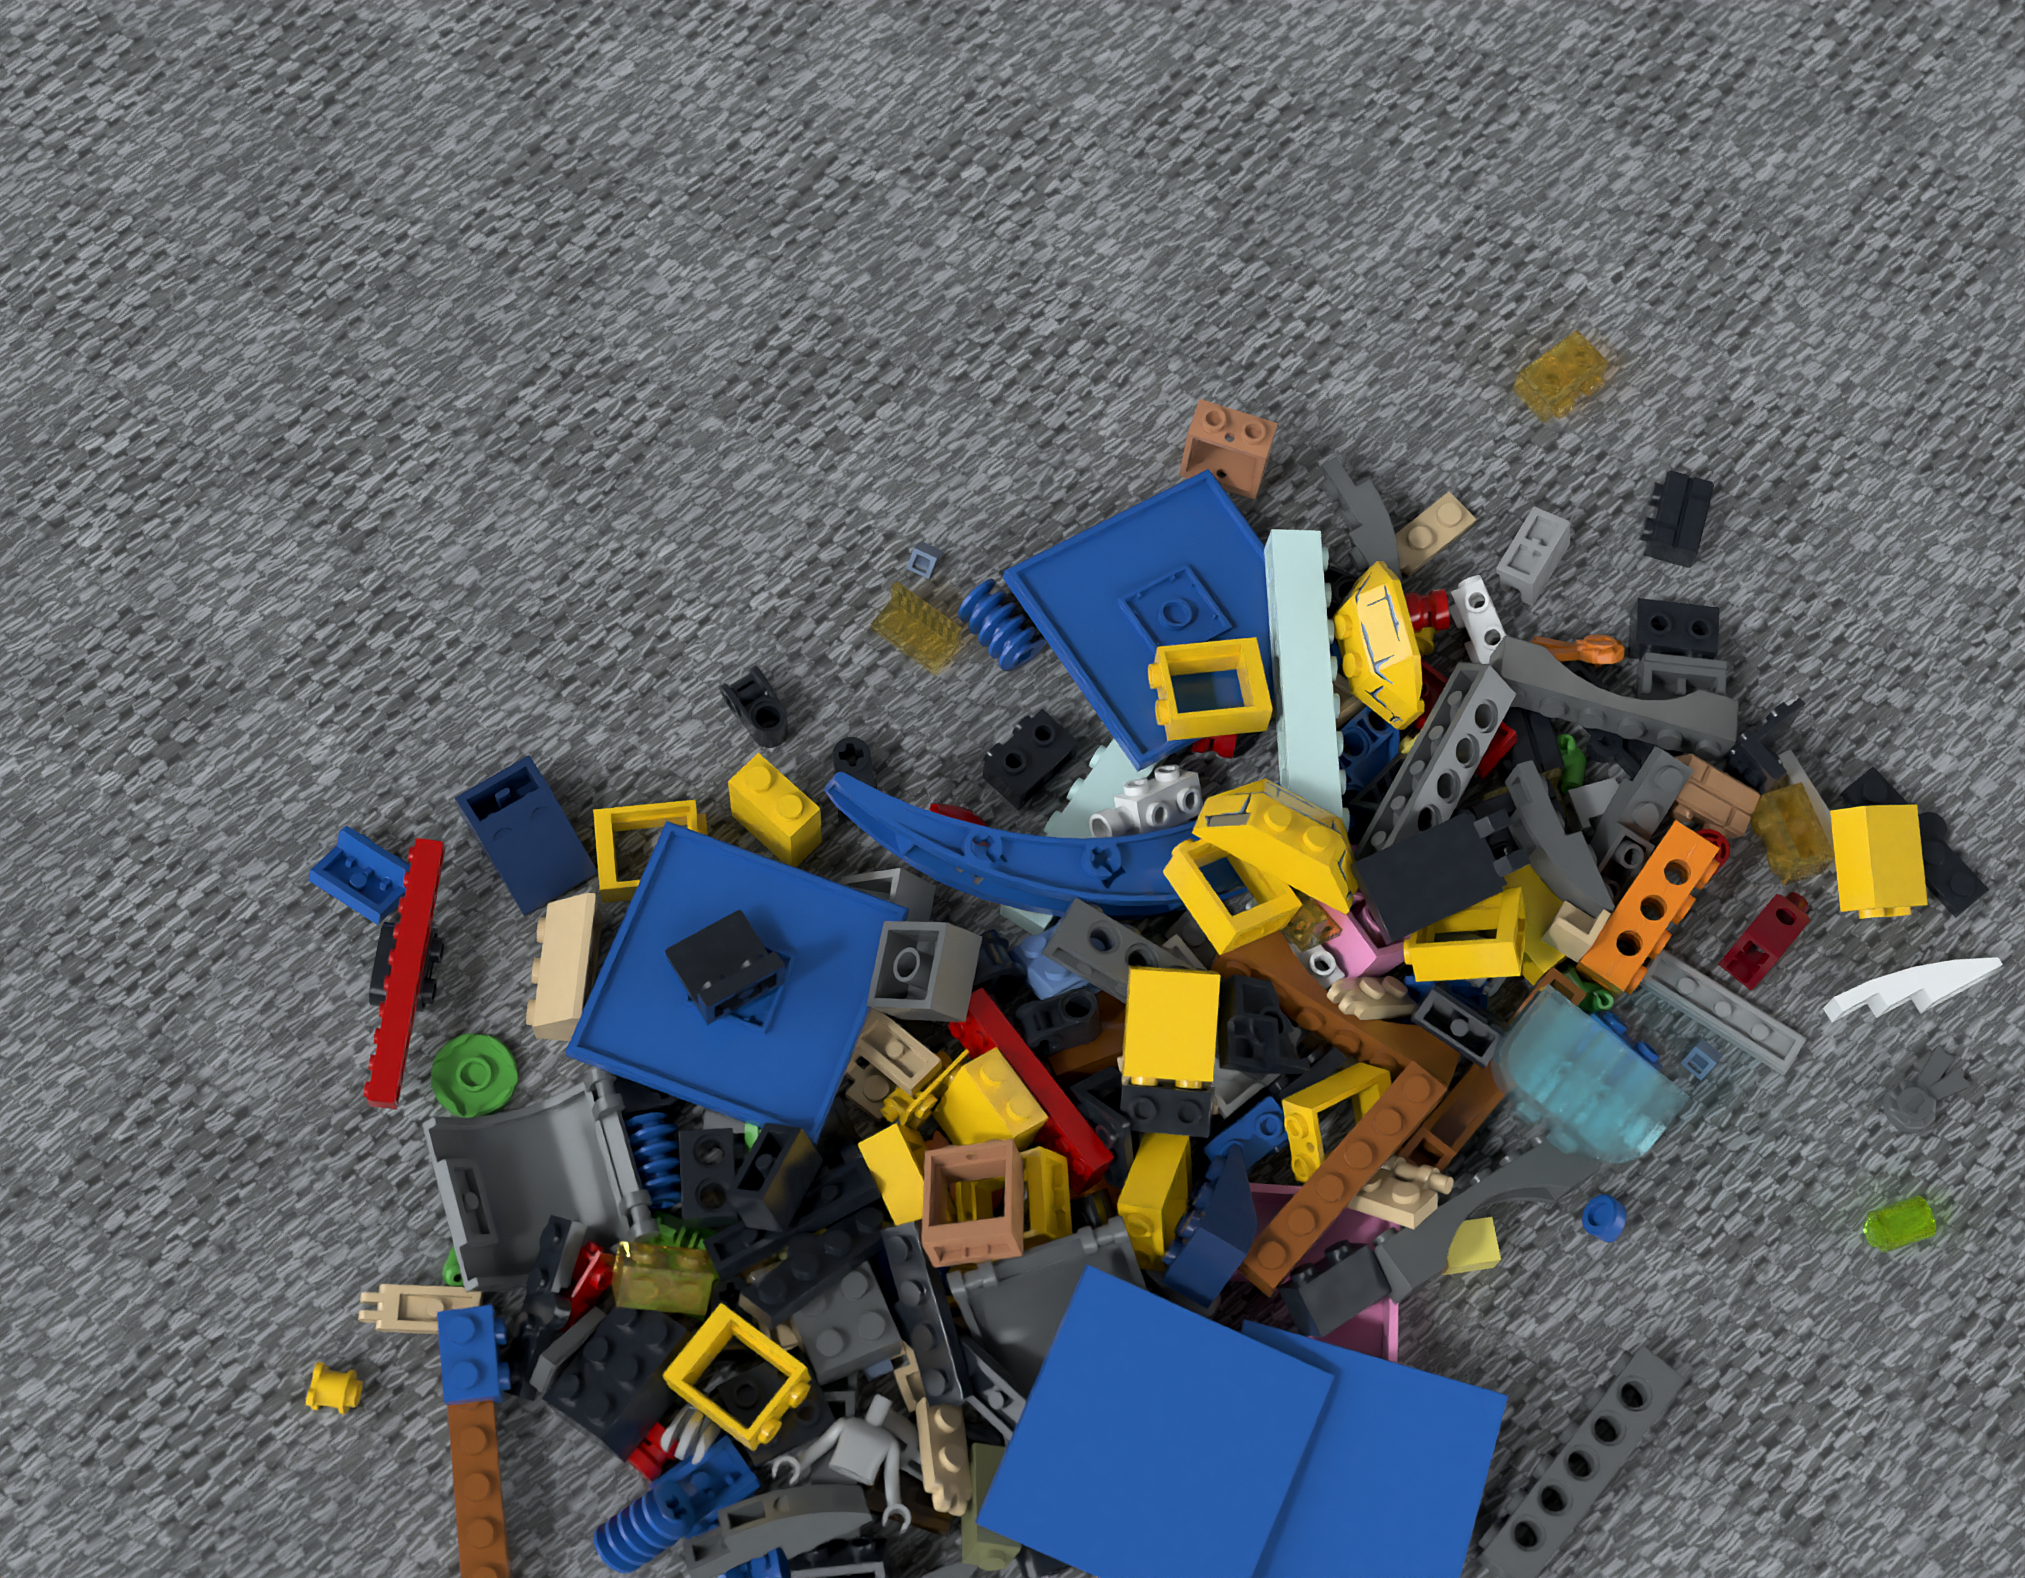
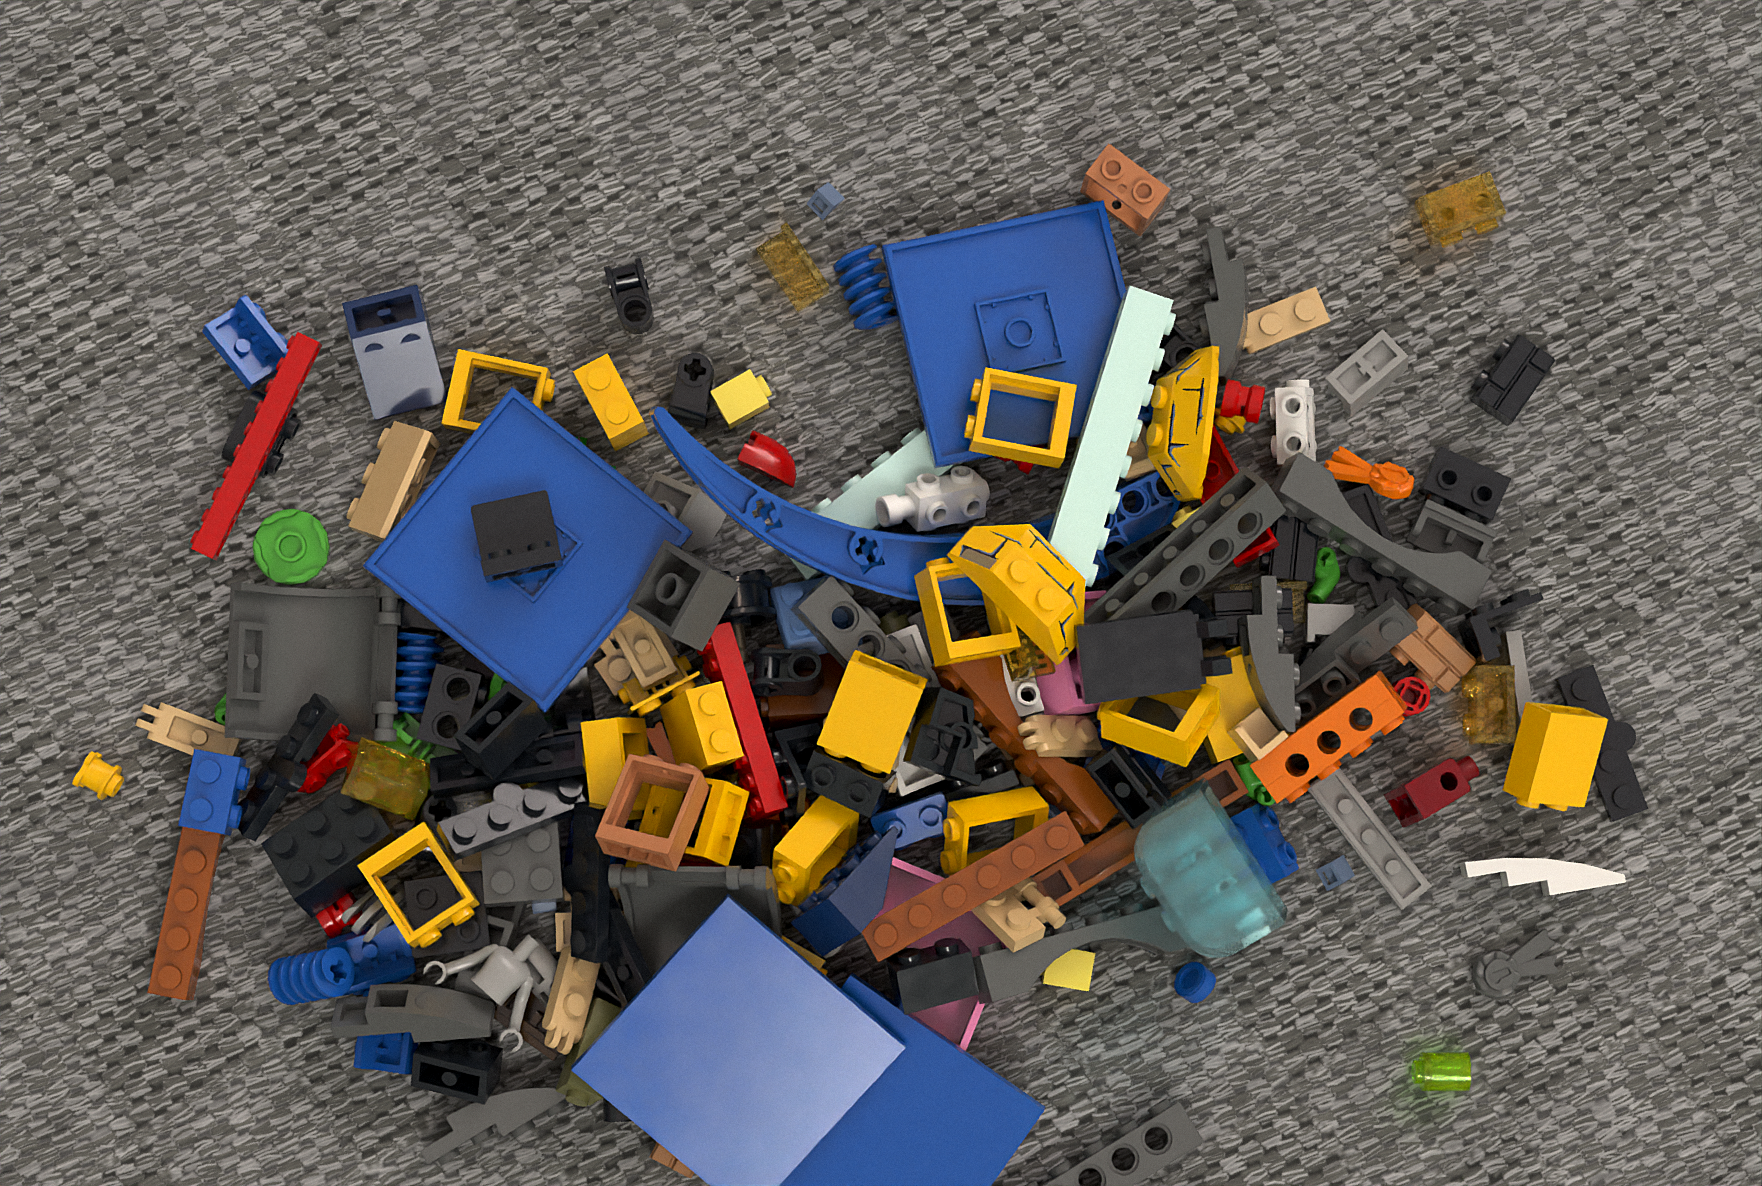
camera: 20 degrees right, 15 degrees up
(562, 1351) = (293, 809): dark grey tile -> none
(908, 771) = (741, 398): none -> light yellow brick
(1029, 758) = (850, 419): black brick -> none

